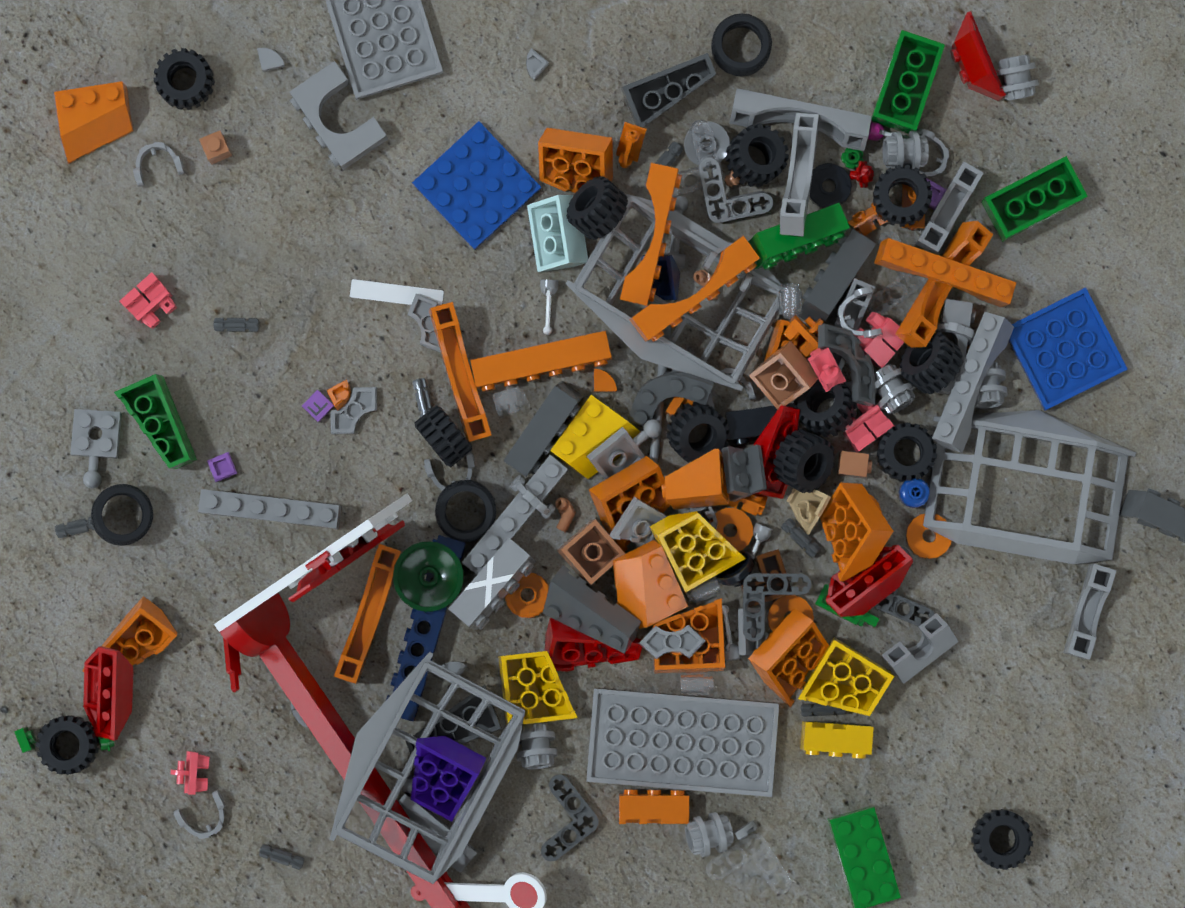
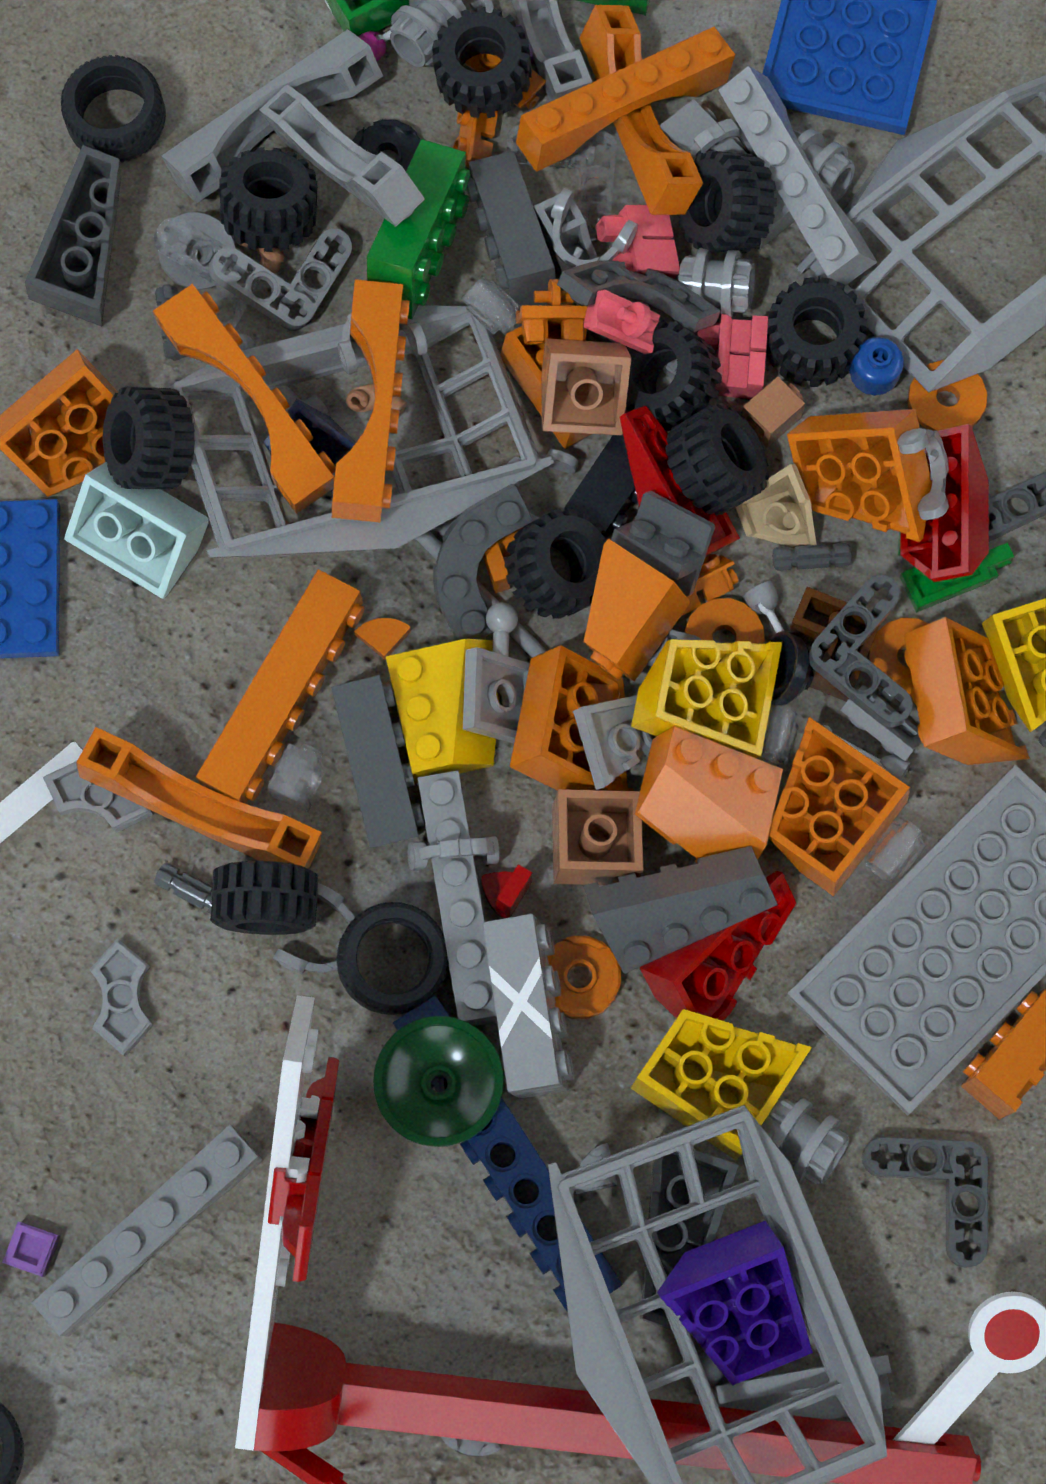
camera: 50 degrees left, 10 degrees down
(318, 406) = (70, 1040): medium lavender tile -> none
(340, 394) = (81, 996): orange tile -> none
(368, 615) = (416, 1217): orange arch -> none
(536, 532) = (506, 889): none -> red tile
(548, 288) = (196, 599): hinge -> none
(566, 512) = (513, 829): nougat arm -> none
(630, 144) = (107, 338): orange hinge -> none
(660, 642) = (803, 842): light grey tile -> none
(846, 158) = (382, 108): green plate -> none
(863, 174) = (411, 101): red plant -> none
(874, 544) = (912, 441): none -> light grey piece

